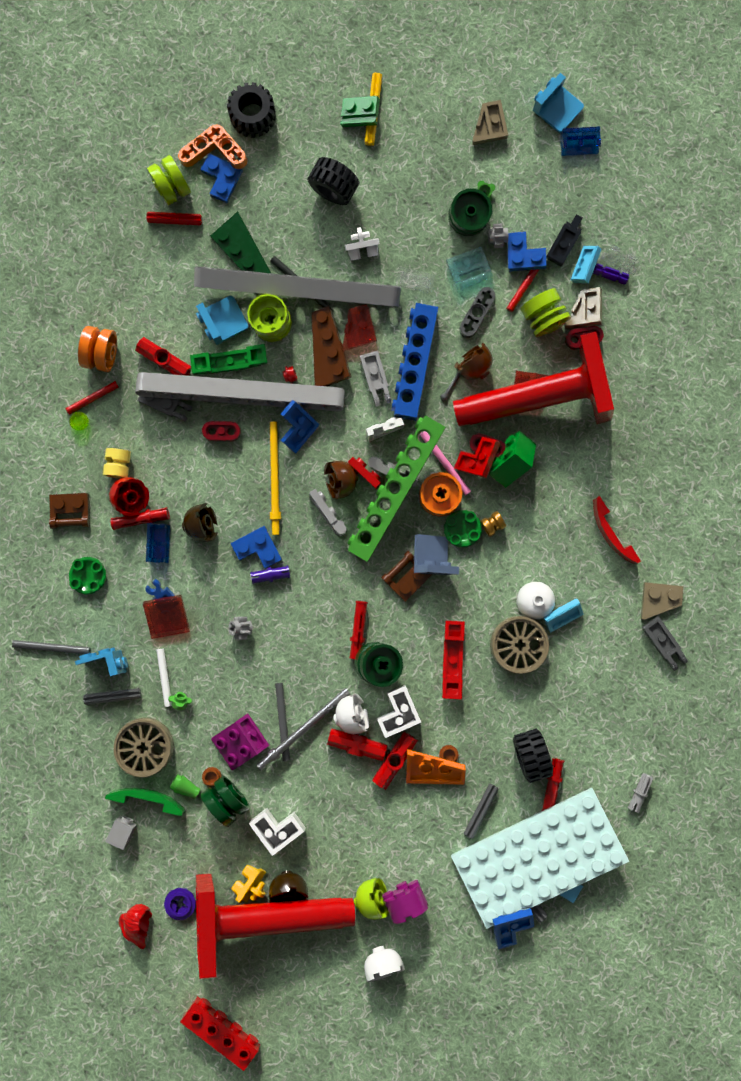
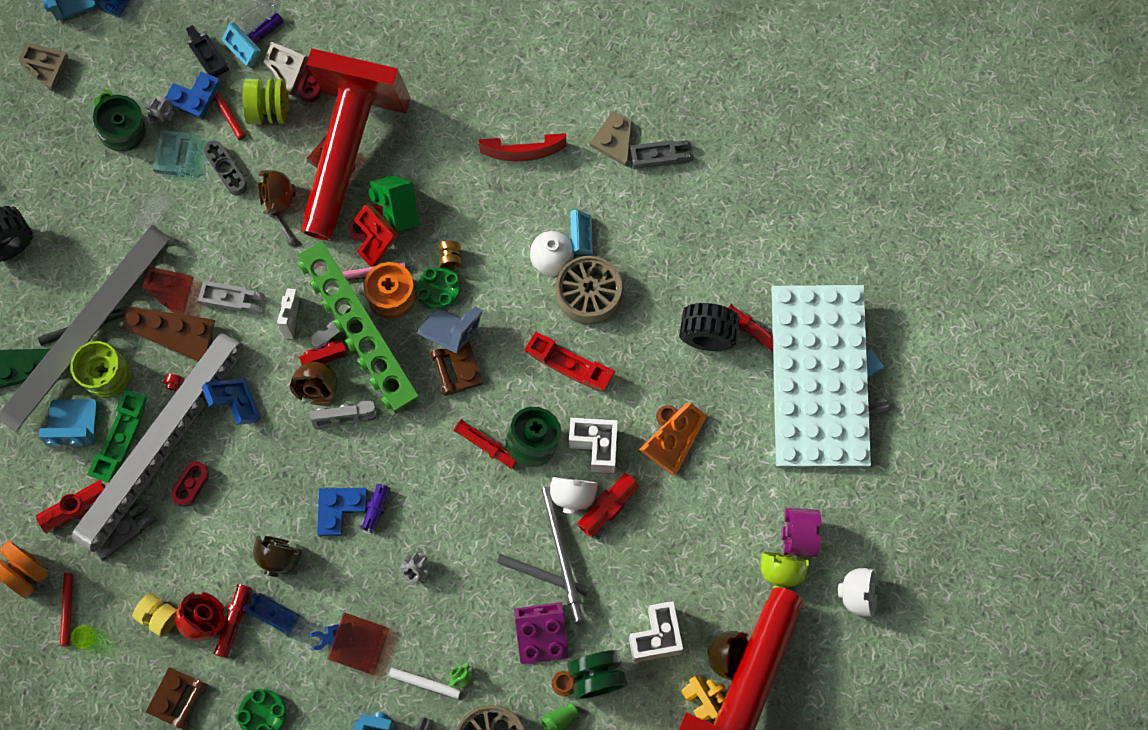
camera: 65 degrees left, 15 degrees down
(275, 515) = (313, 471): yellow bar -> none
(371, 245) = (83, 253): white hips -> none
(388, 771) = (653, 485): red piece -> none
(428, 315) = (198, 214): blue brick -> none
(481, 811) = (743, 412): dark grey axle -> none
(507, 926) = (875, 437): blue plate -> none
(640, 792) = (800, 247): light grey axle -> none

